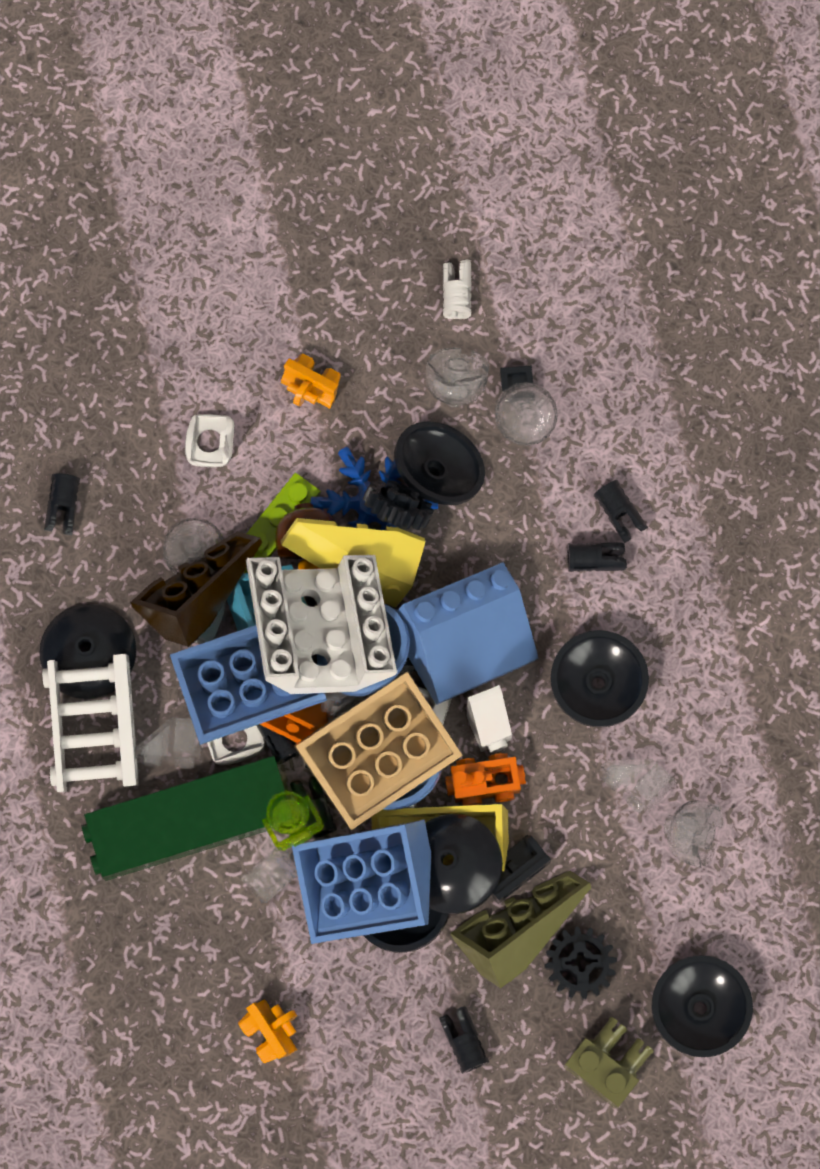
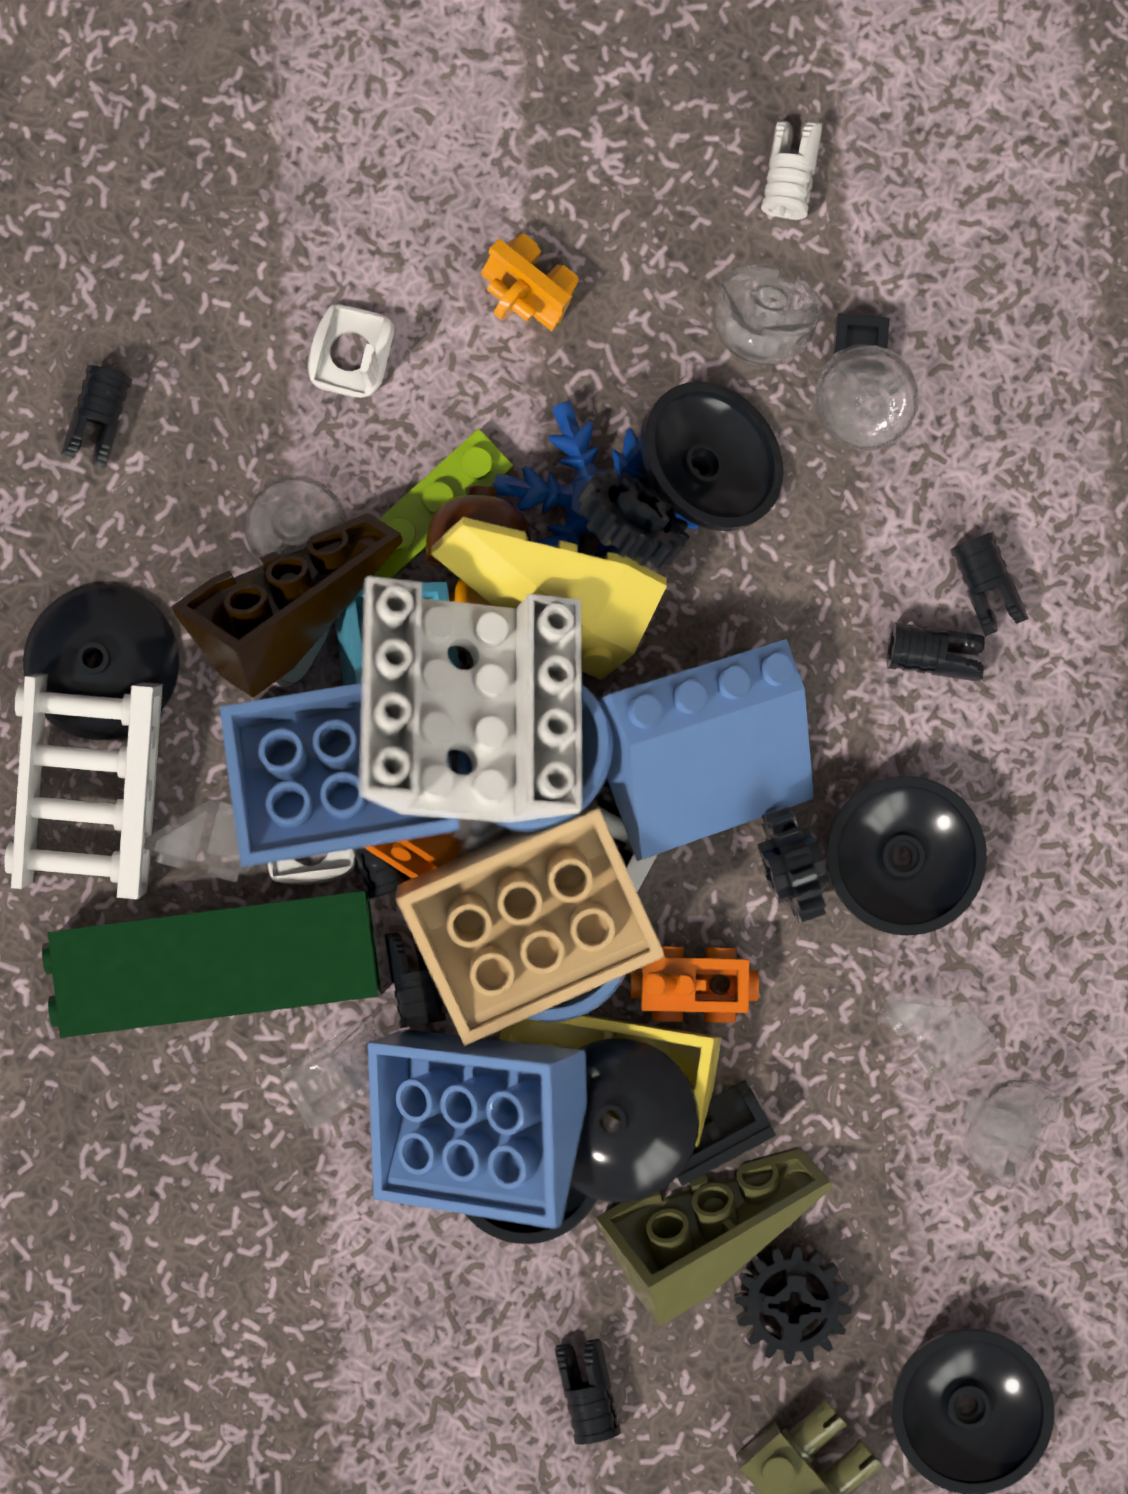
camera: 10 degrees right, 10 degrees up
(275, 1028) = (292, 1320): light orange hips -> none
(288, 814) = (368, 996): clear neon green piece -> none
(489, 720) = (719, 898): white slope -> none
(532, 695) = (793, 864): none -> black gear

